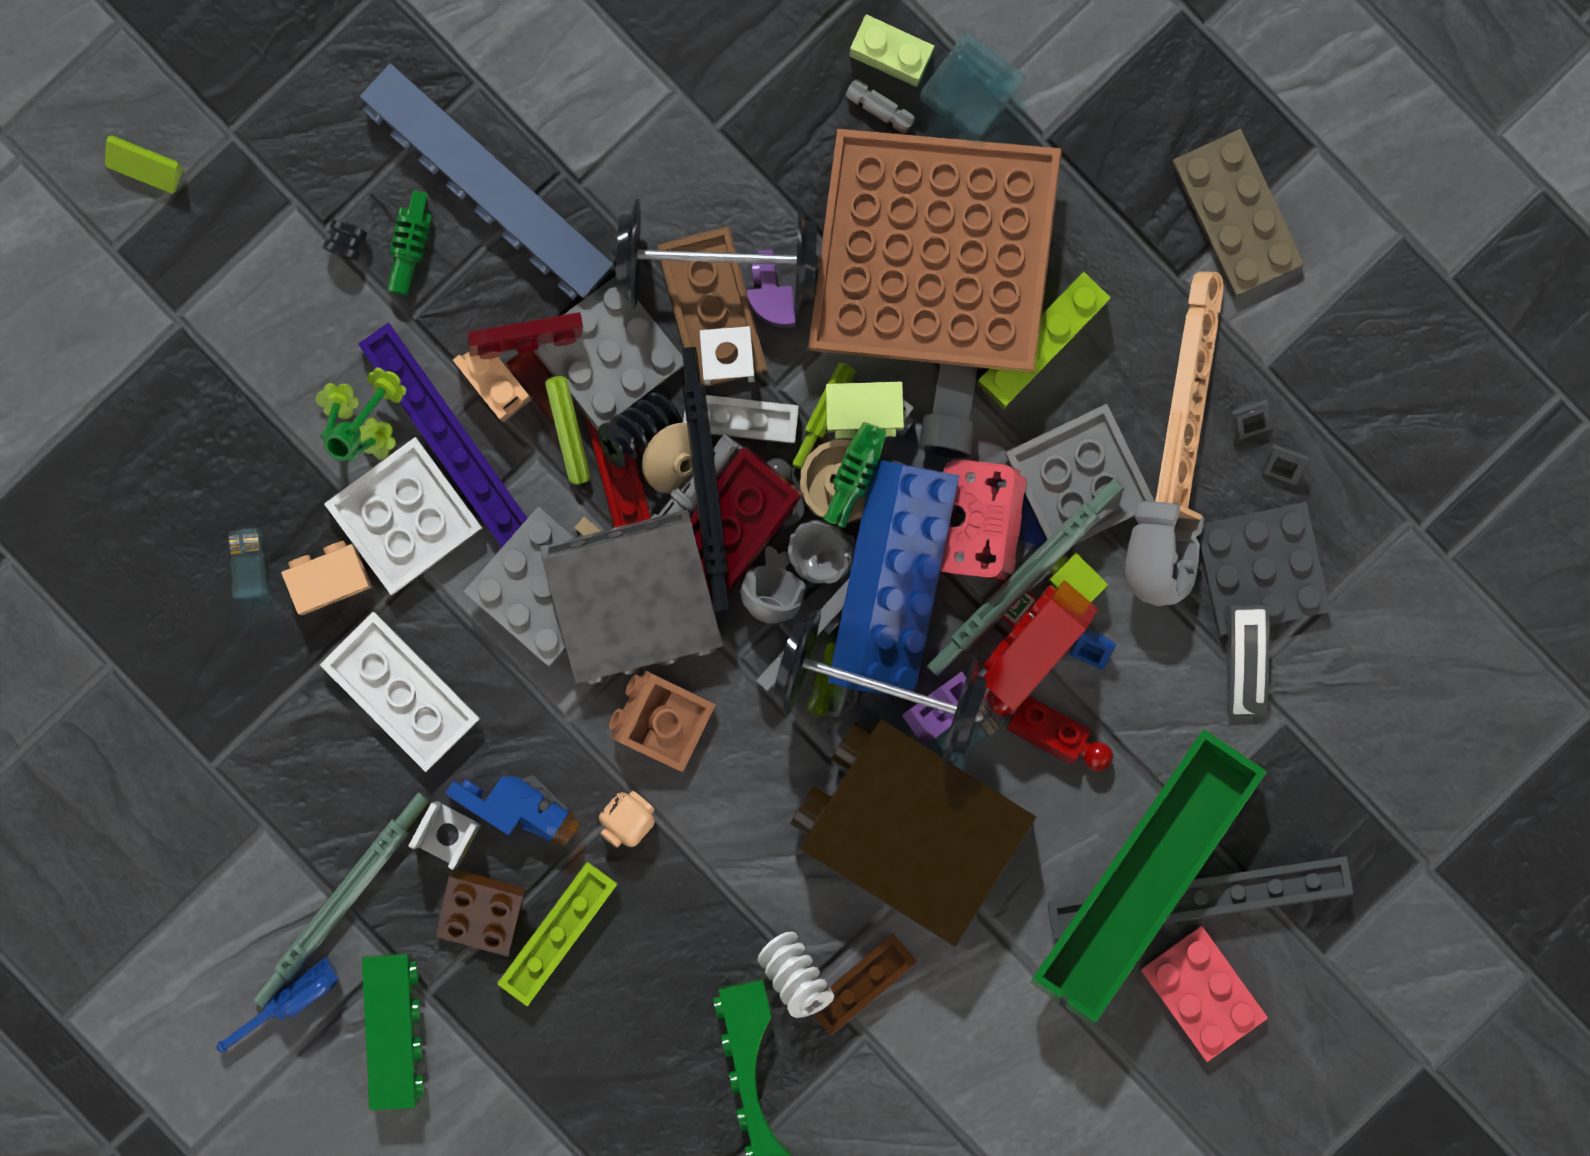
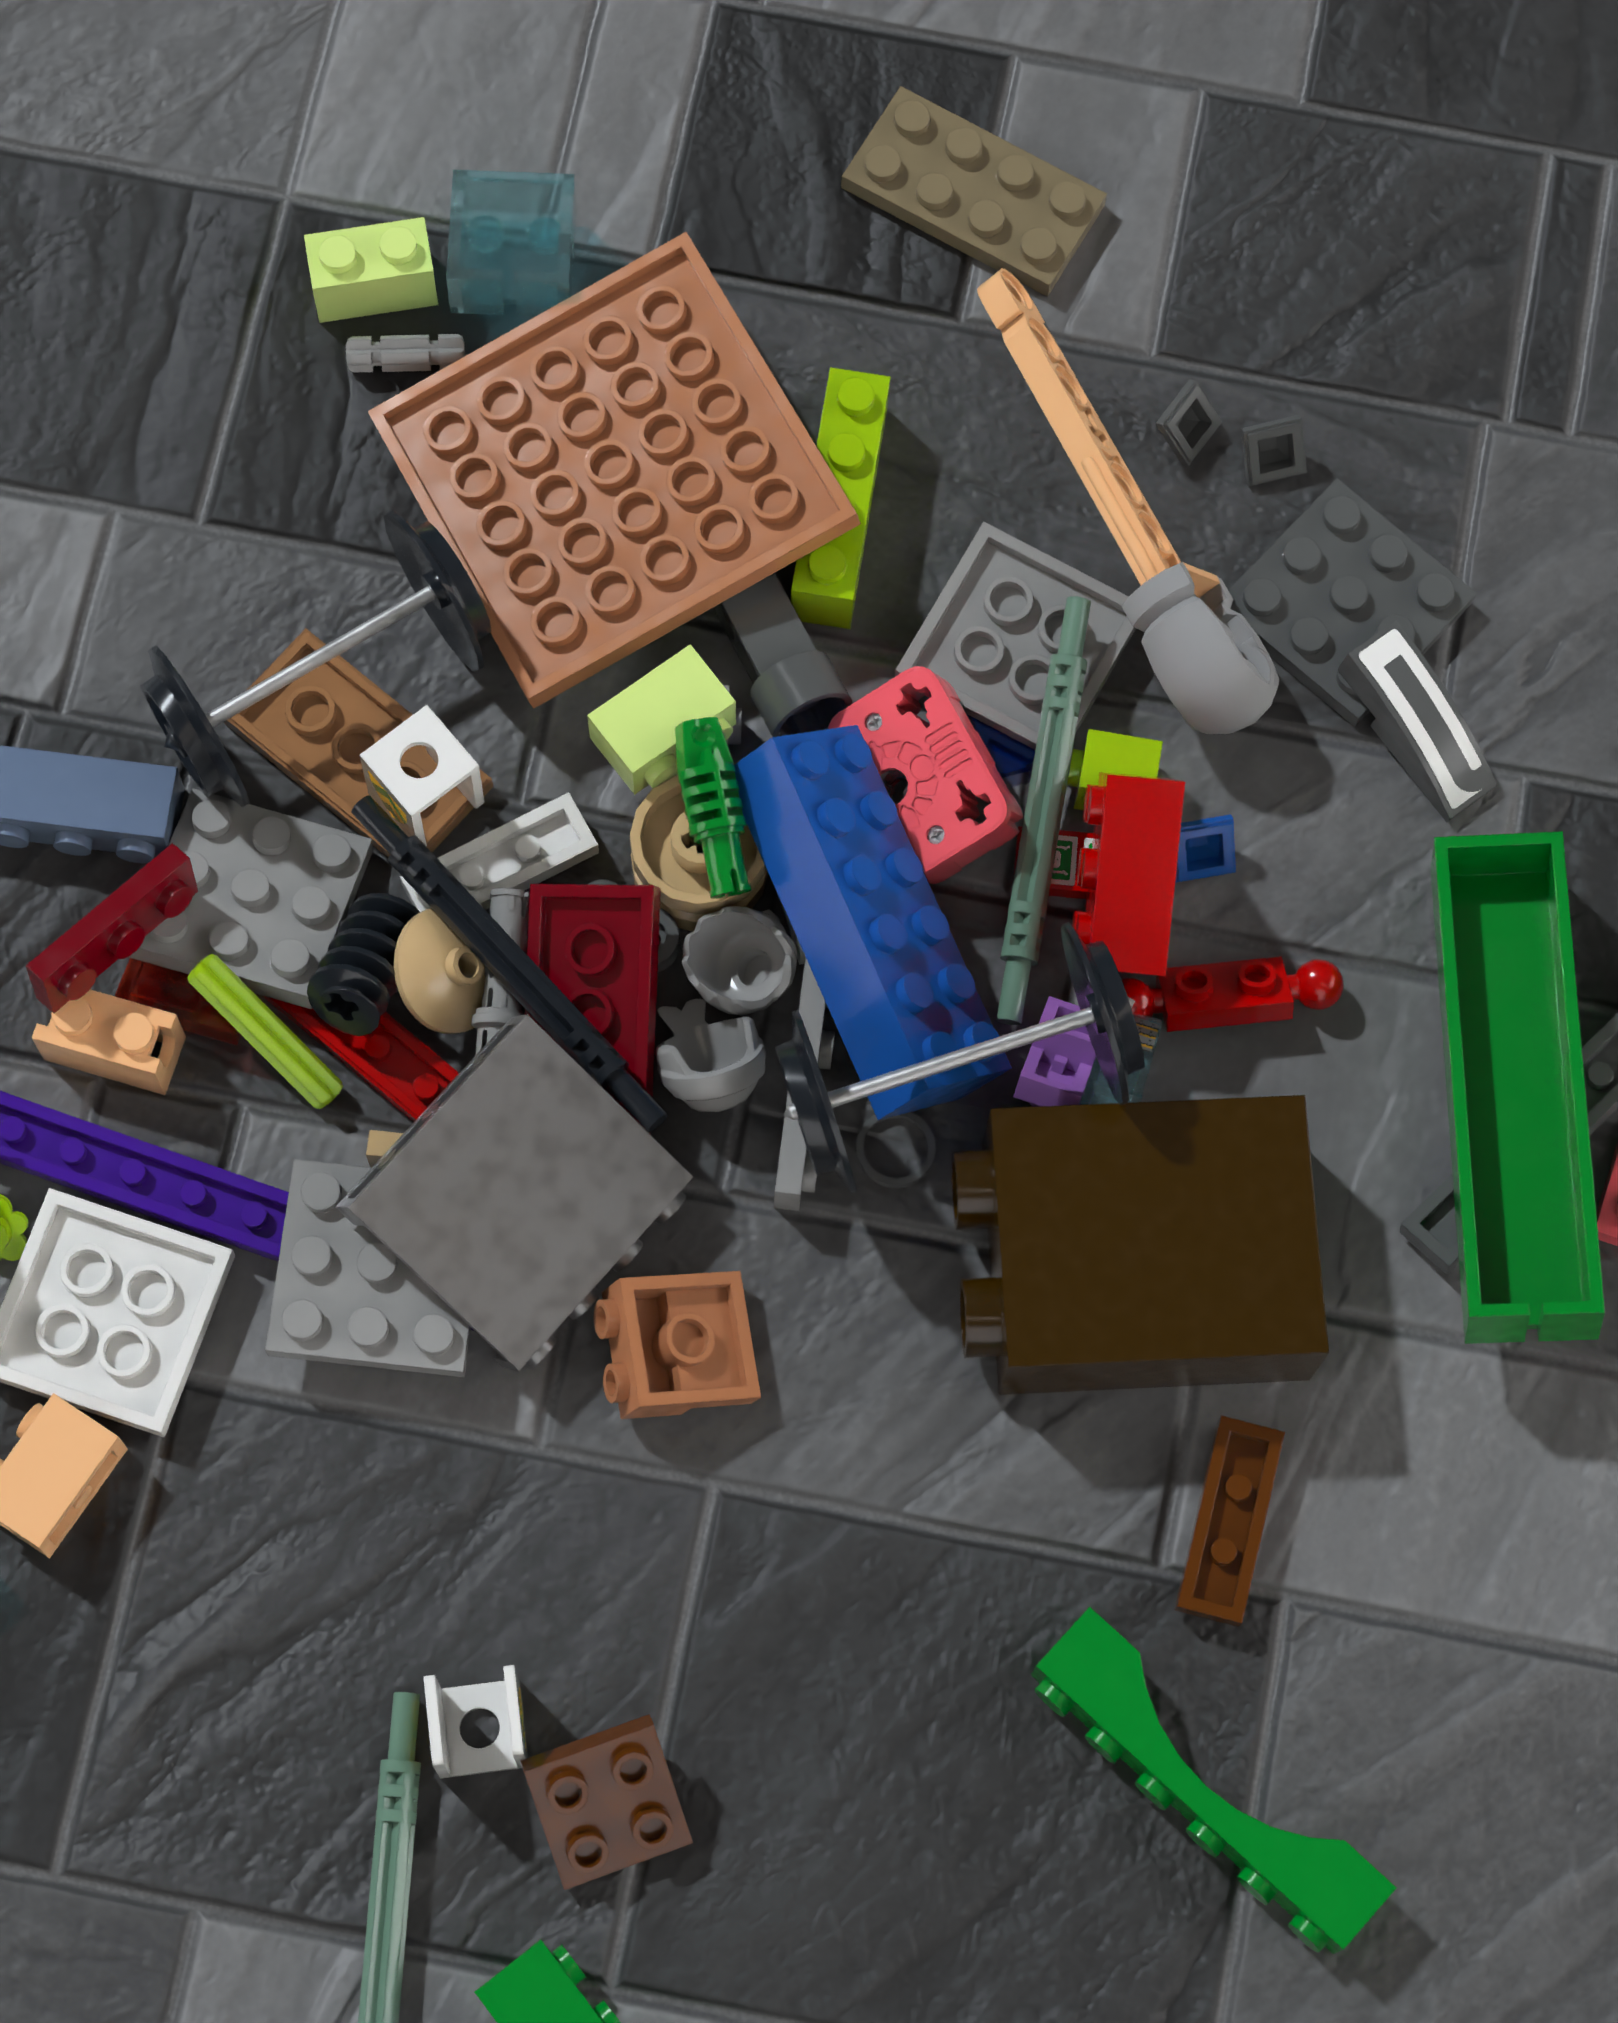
camera: 35 degrees left, 15 degrees down
(400, 691) = (268, 1565): white plate -> none
(521, 802) = (549, 1603): blue plate -> none
(557, 933) = (742, 1758): lime plate -> none
(626, 819) = (727, 1518): light nougat head -> none
(771, 303) = (430, 678): medium lavender brick -> none
(793, 977) = (1129, 1572): white piece -> none
(817, 423) = (611, 802): lime axle -> none
(822, 688) = (873, 1143): clear neon green axle -> none

